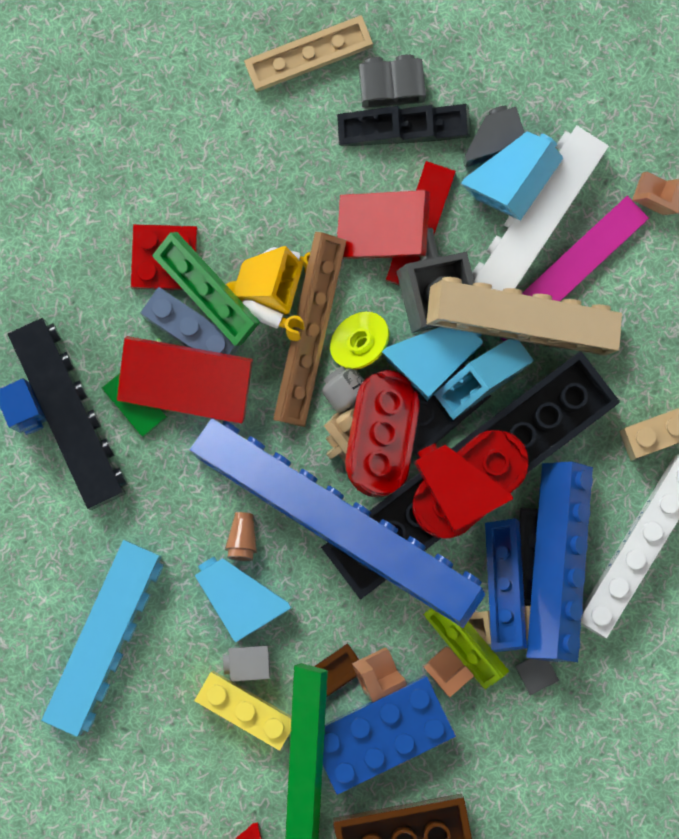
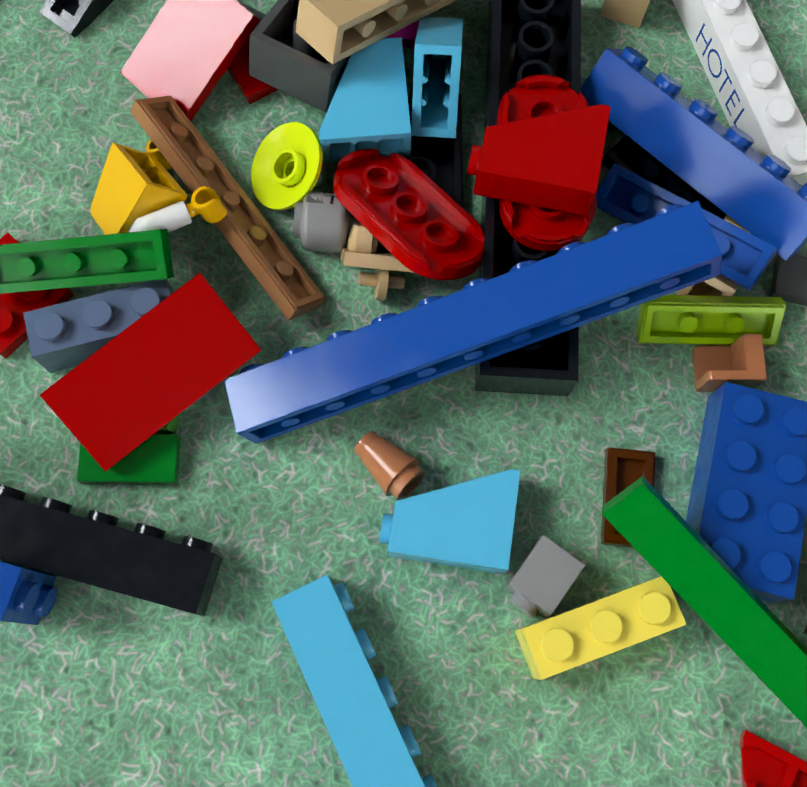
camera: 55 degrees left, 10 degrees down
(378, 675) = (676, 444): nougat panel -> none

